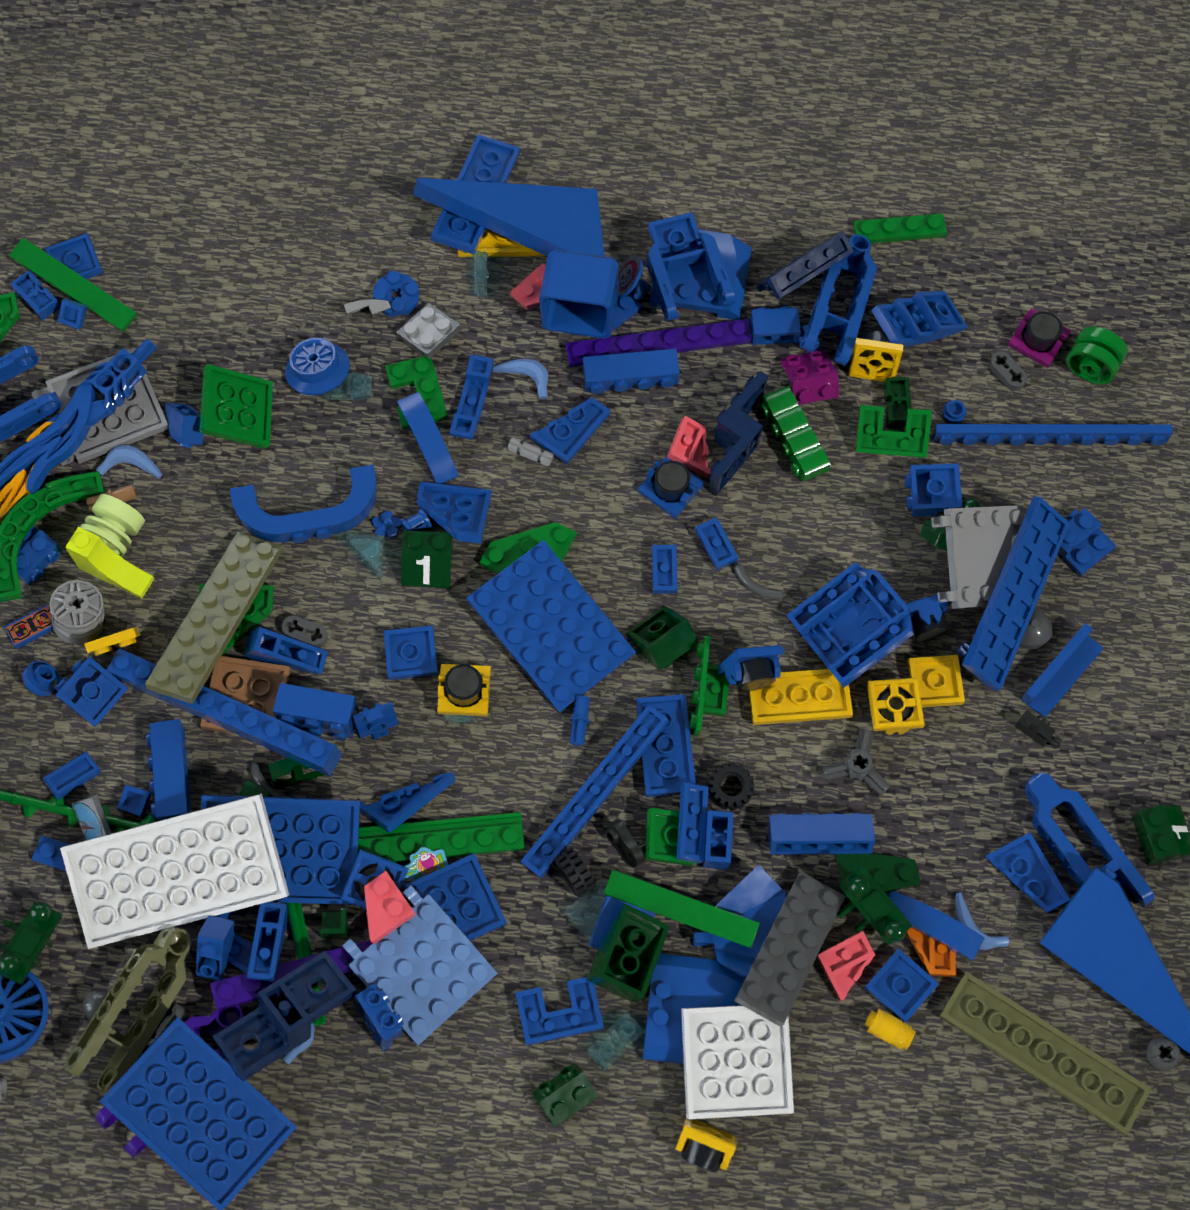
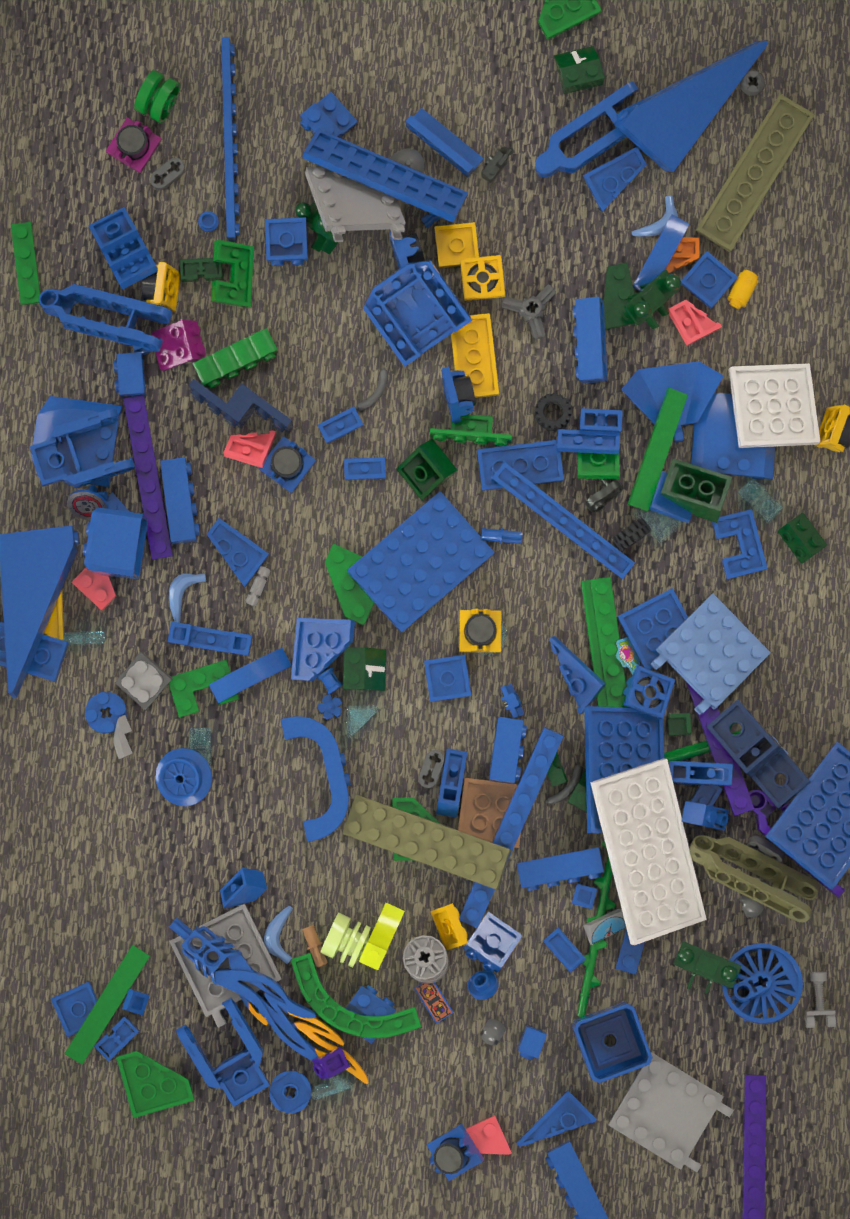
camera: 90 degrees left, 15 degrees up
(236, 406) = (229, 843): green plate -> none
(378, 1017) = (754, 682): blue plate -> none
(385, 907) = (671, 680): coral wing -> none
(790, 949) = (686, 364): dark grey plate -> none
(806, 266) = (77, 338): dark blue fence -> none

